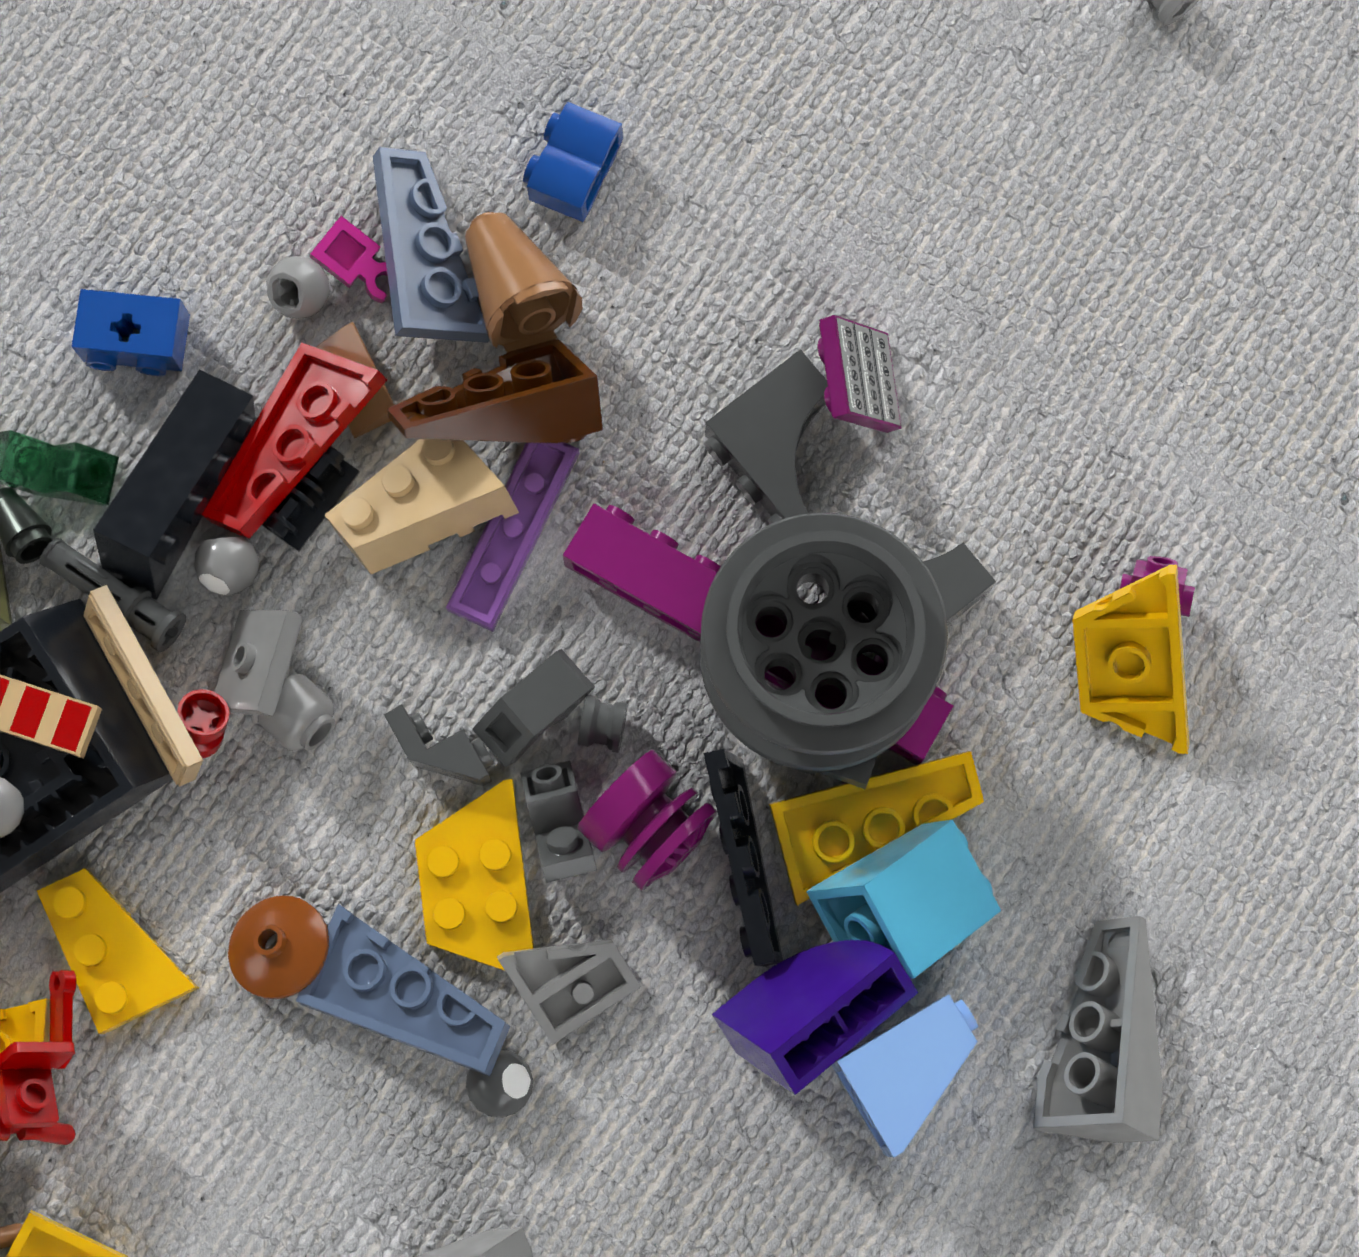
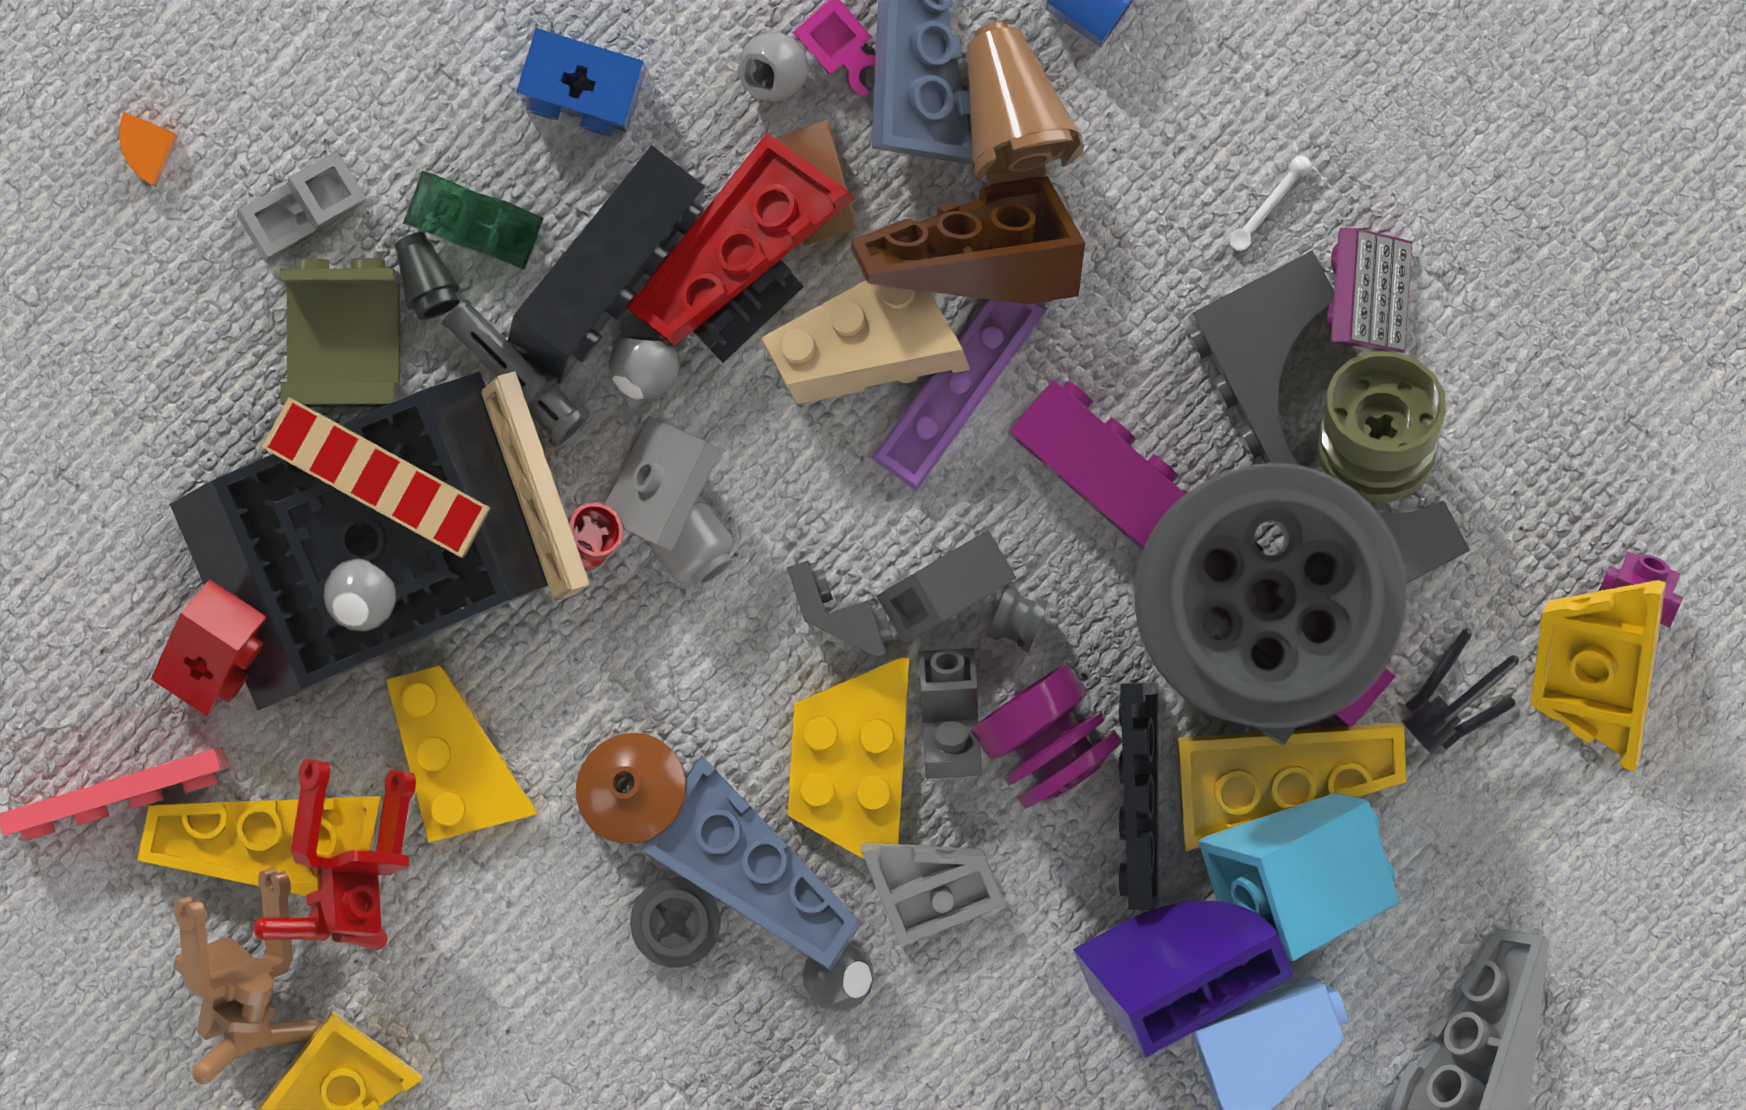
camera: 10 degrees right, 10 degrees up
(315, 1068) = (674, 950): none -> dark grey gear
(737, 359) = (1241, 238): none -> white hinge
(896, 479) = (1381, 425): none -> olive wheel
(998, 743) = (1435, 722): none -> black plant

